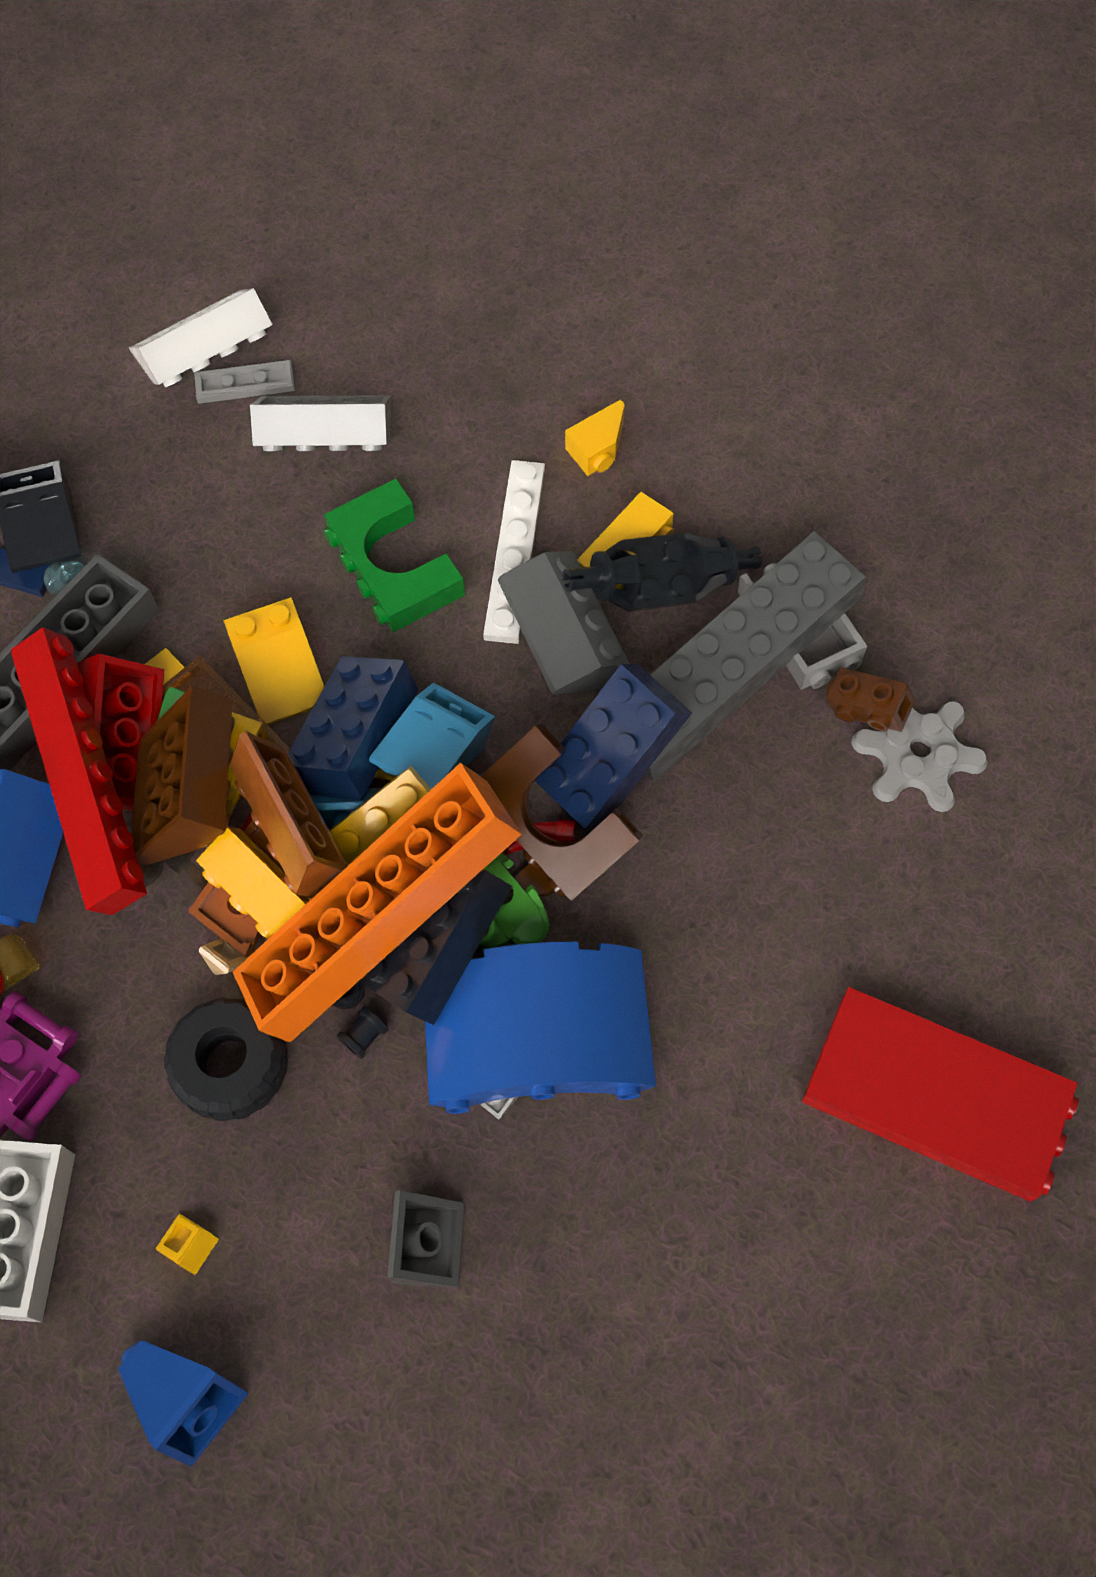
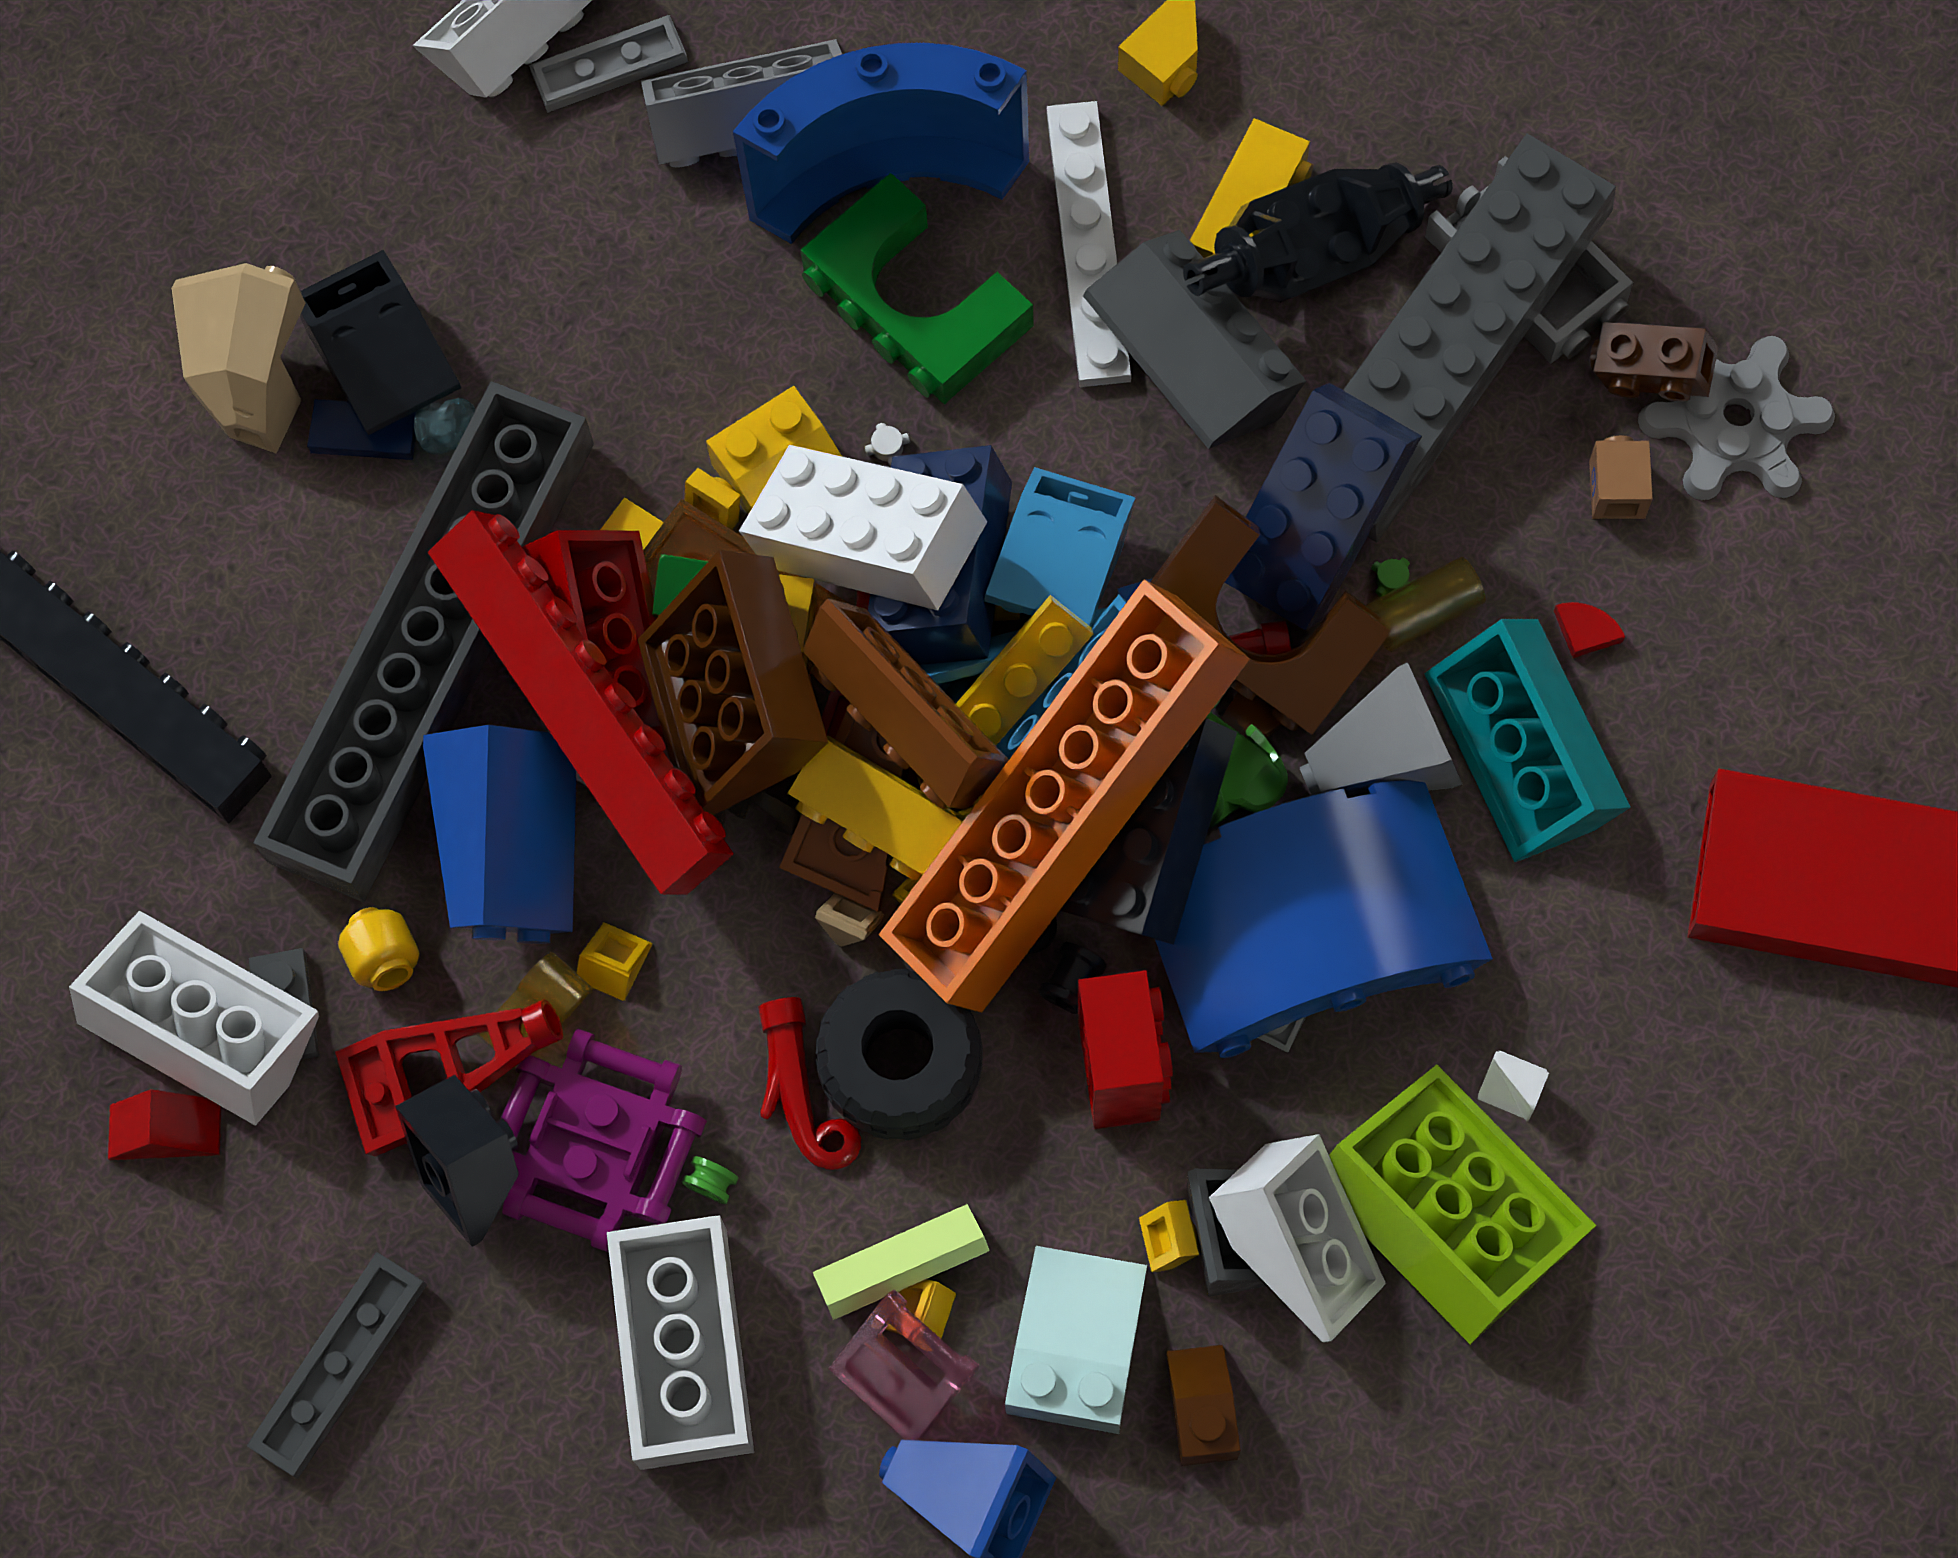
camera: 10 degrees left, 5 degrees up
(59, 949) = (612, 960): none -> yellow slope
(72, 1117) = (710, 1179): none -> bright green bush
(150, 1061) = (788, 1080): none -> red plant
(151, 1294) = (893, 1382): none -> clear pink plate
(183, 1207) = (901, 1261): none -> yellowish green tile
(221, 659) = (713, 497): none -> yellow plate
(288, 1294) = (1075, 1340): none -> light aqua slope
(300, 694) = (864, 526): none -> white brick
(347, 647) = (886, 443): none -> white piece
(364, 1366) = (1203, 1405): none -> reddish brown slope
(372, 1091) = (1123, 1049): none -> red brick
(375, 1233) = (1169, 1235): none -> yellow plate
(386, 435) = (879, 114): none -> blue panel
(464, 1257) = (1300, 1233): none -> white slope
(583, 1258) = (1455, 1203): none -> lime slope
(619, 914) = (1382, 741): none -> light grey slope
(649, 1180) = (1513, 1085): none -> white slope
(657, 807) = (1390, 575): none -> bright green piece
(675, 829) = (1429, 602): none -> clear yellow brick
(720, 936) = (1526, 738): none -> teal slope
(782, 870) = (1587, 628): none -> red tile
(828, 774) = (1620, 478): none -> medium nougat brick

